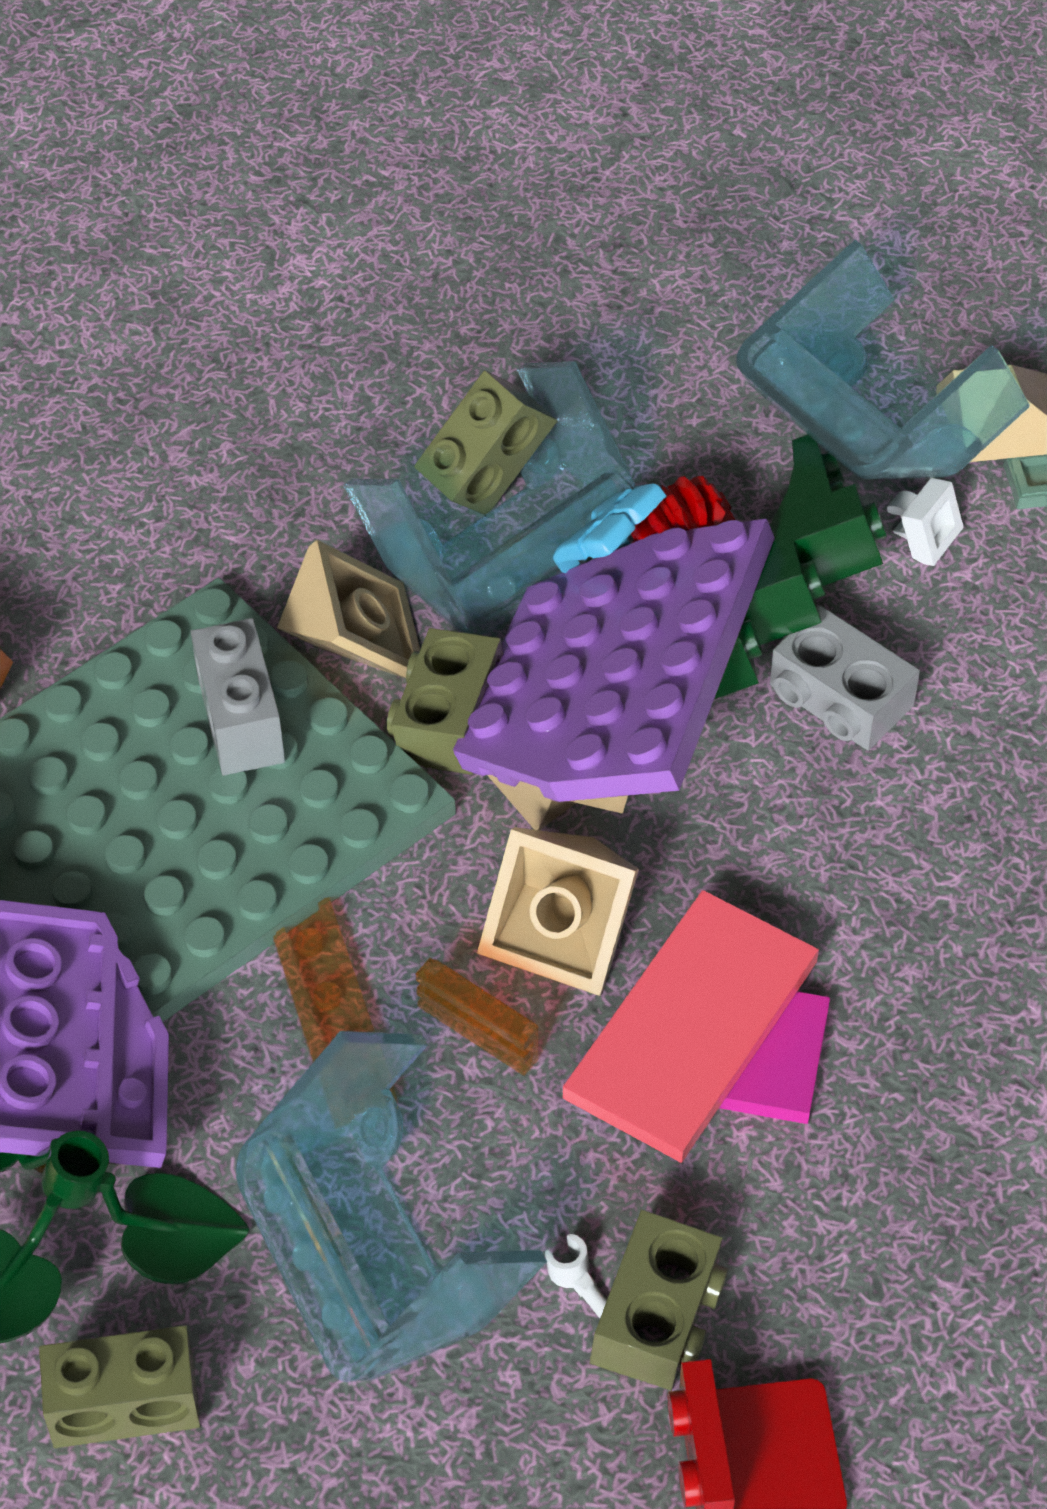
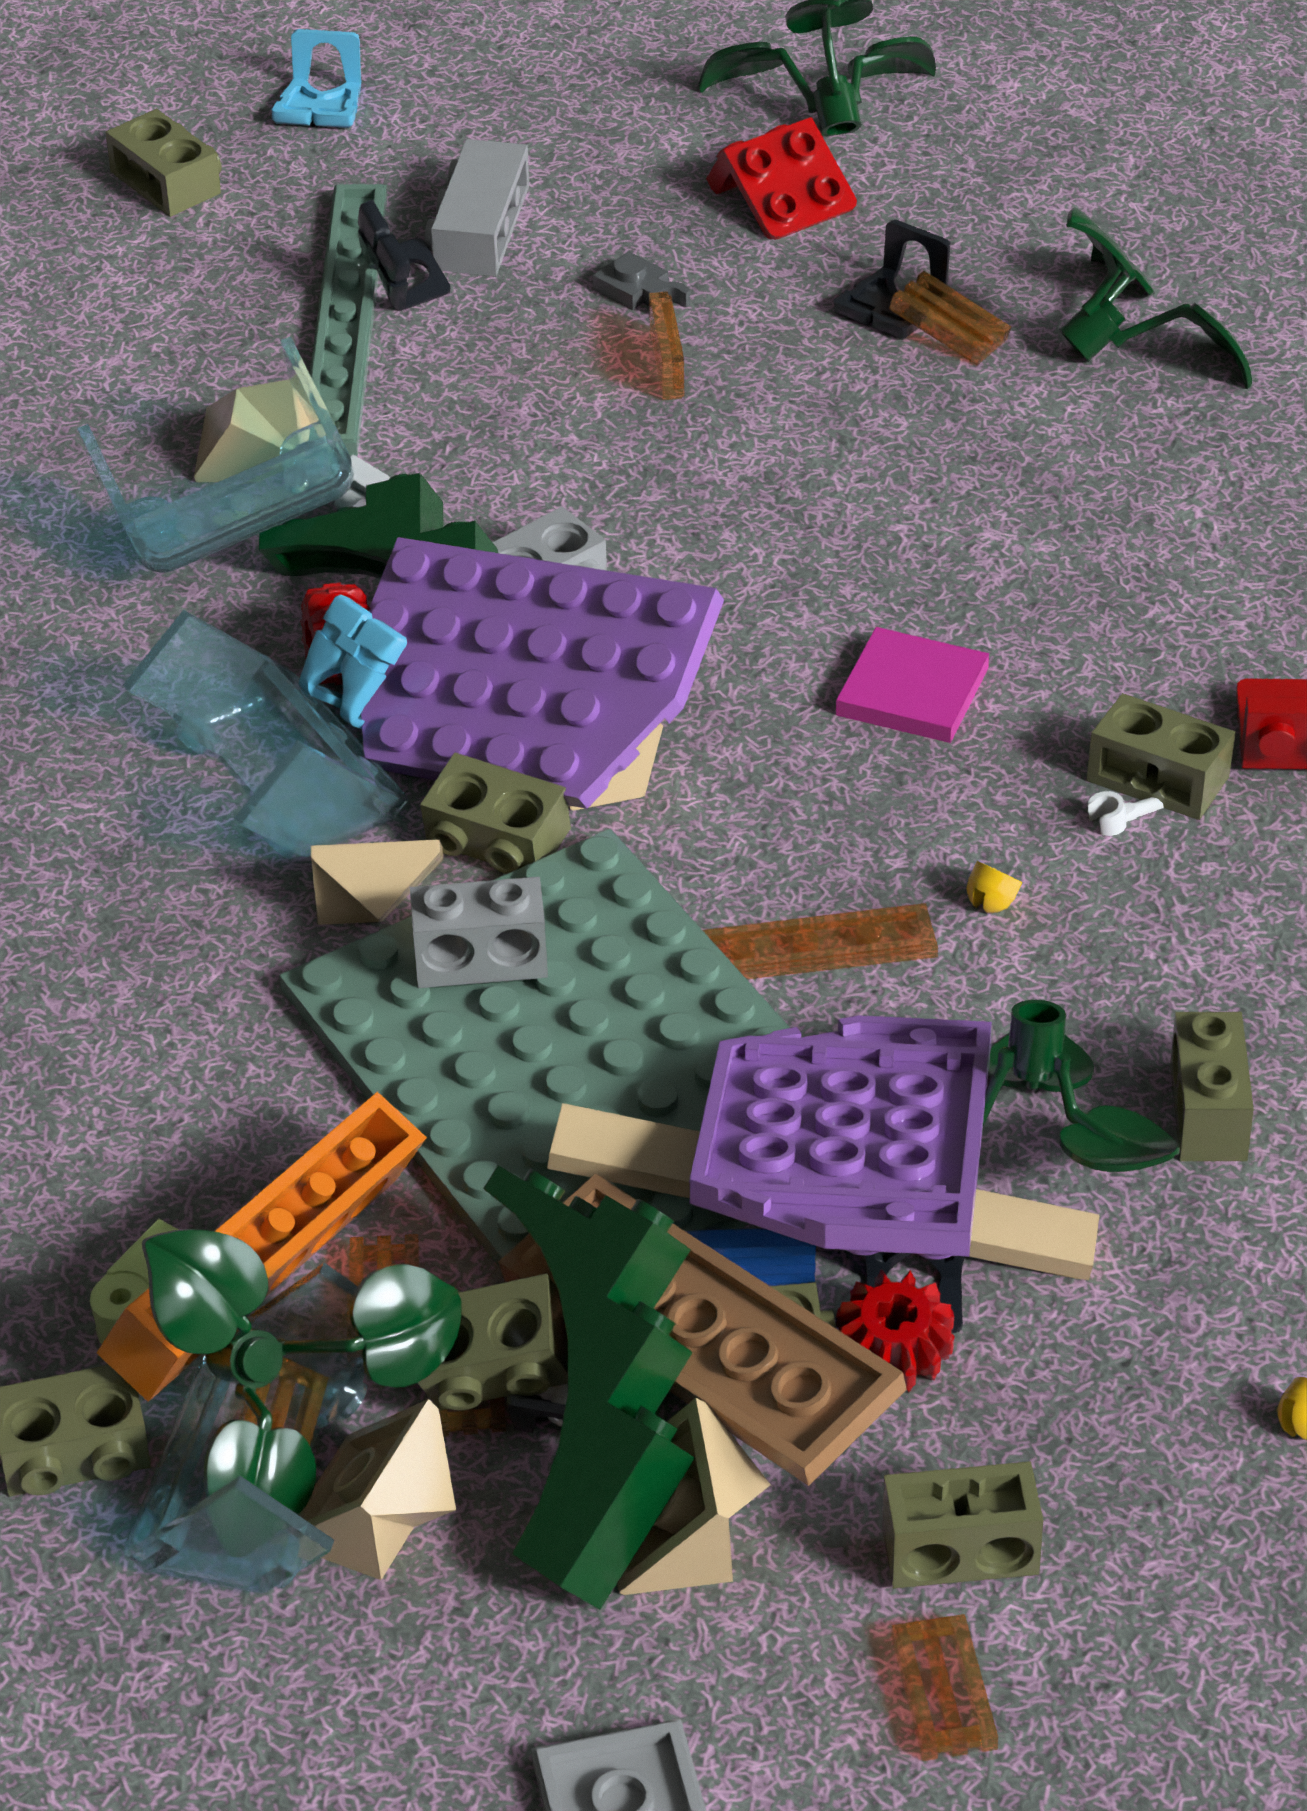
camera: 80 degrees left, 10 degrees down
(340, 1228) = (1146, 931): clear light blue windscreen -> none
(433, 1144) = (992, 888): none -> yellow hinge
(477, 1016) = (858, 833): clear orange tile -> none
(485, 443) = (199, 739): olive brick -> none
(558, 907) = (755, 766): tan slope -> none
(690, 1025) = (896, 701): coral tile -> none

